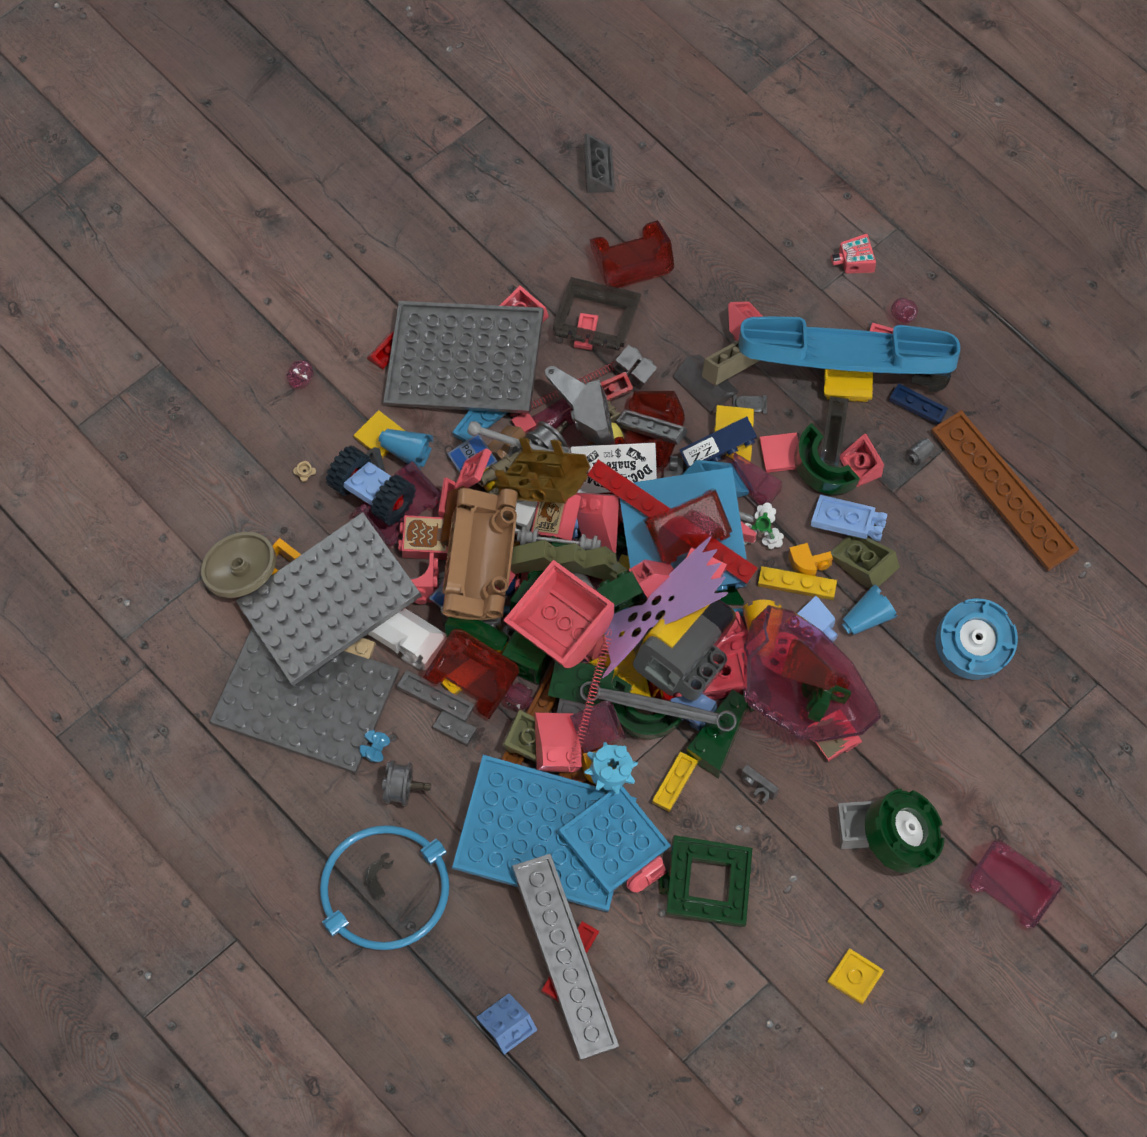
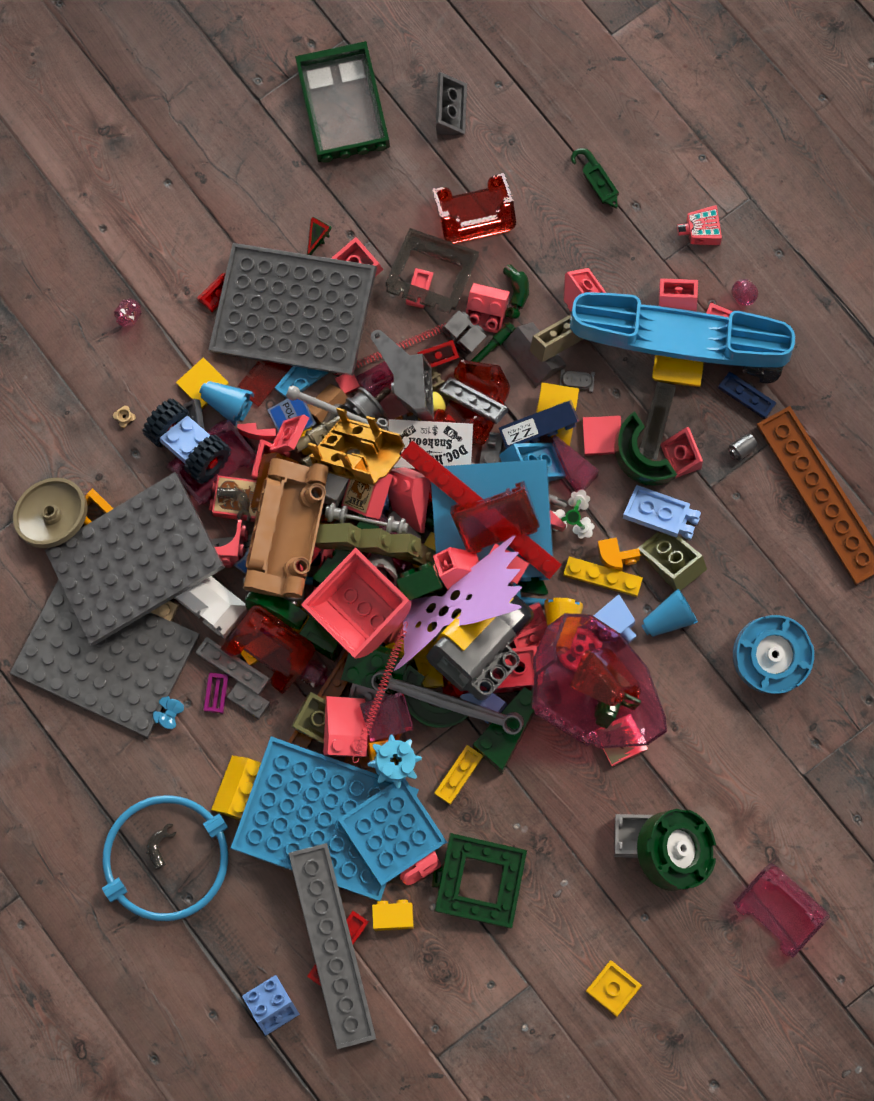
camera: 10 degrees right, 10 degrees up
(399, 783) = (188, 755): flat silver wheel -> none
(421, 740) = (214, 709): none -> magenta tile
(425, 531) = (238, 495): none -> clear smoke piece
(436, 476) = (251, 431): none -> coral slope
(441, 426) = (264, 380): none -> clear red windscreen
(451, 812) = (236, 787): none -> yellow slope
(480, 288) = (317, 233): none -> piece
(493, 169) = (342, 102): none -> clear window
(623, 923) = (392, 916): none -> yellow brick
(655, 342) = (487, 307): none -> coral slope
(668, 371) = (498, 339): none -> dark green pin
(686, 326) = (520, 291): none -> dark green arm
(749, 220) = (597, 178): none -> dark green plate
(762, 785) = (535, 778): flat silver plate -> none
(840, 315) = (678, 294): none -> coral slope

